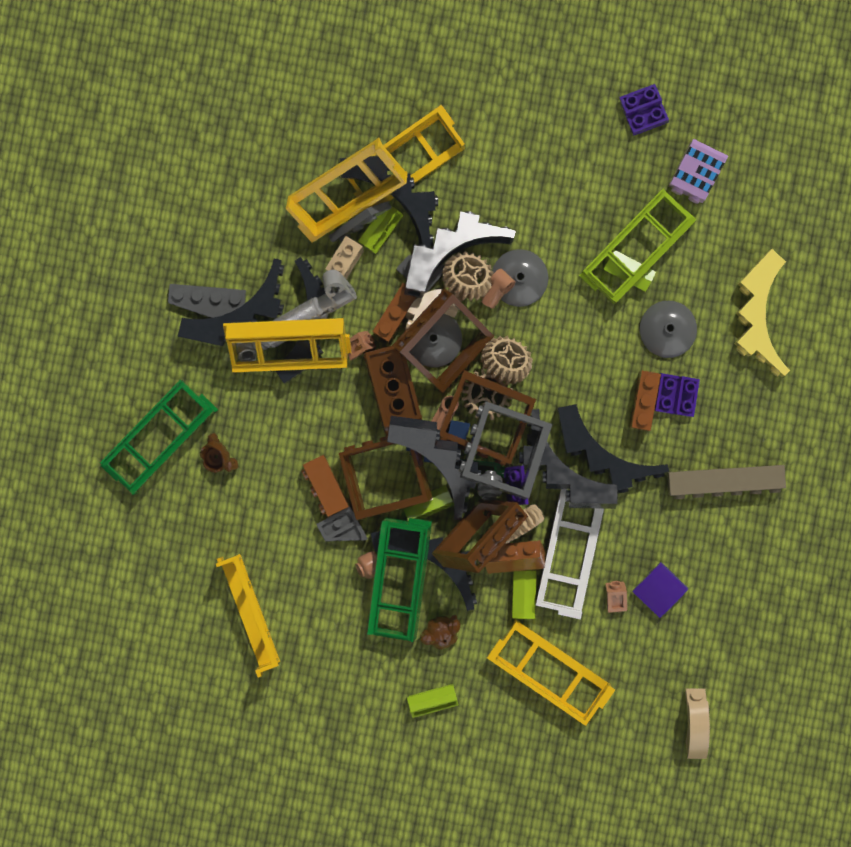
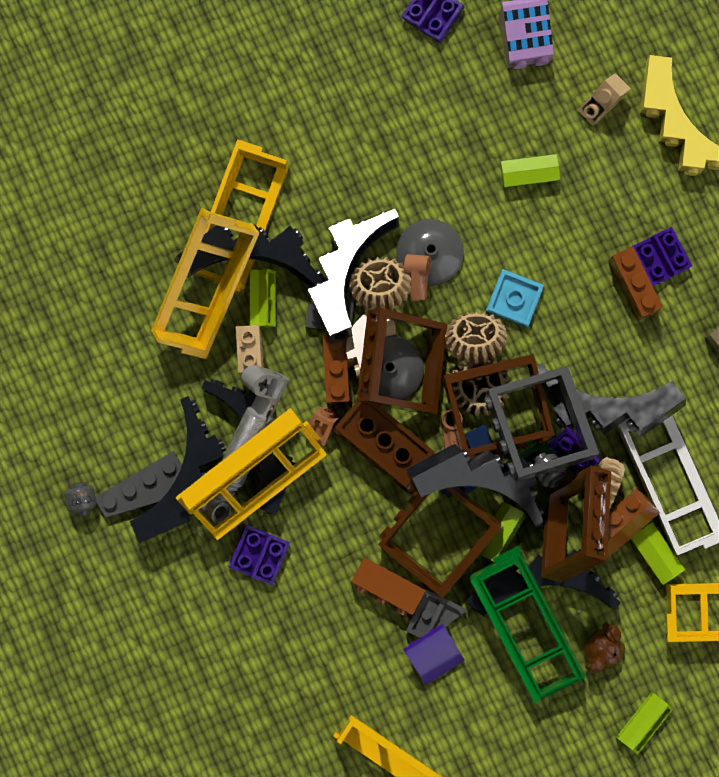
camera: 40 degrees left, 5 degrees down
(159, 277) = (80, 498): none -> dark grey head
(188, 430) = (204, 693): green piece -> none
(209, 452) = (270, 634): reddish brown hair -> none
(254, 401) = (258, 554): none -> dark purple slope
(323, 553) = (434, 654): none -> dark purple slope
(357, 223) = (237, 307): dark grey wing -> none
(367, 565) = (485, 634): nougat head -> none
(555, 351) = (514, 298): none -> medium azure tile
(595, 283) = (506, 205): lime piece -> none
(598, 459) = (597, 364): black arch -> none
(655, 333) = (604, 215): dark grey dish -> none
(718, 256) = (604, 99): none -> tan slope

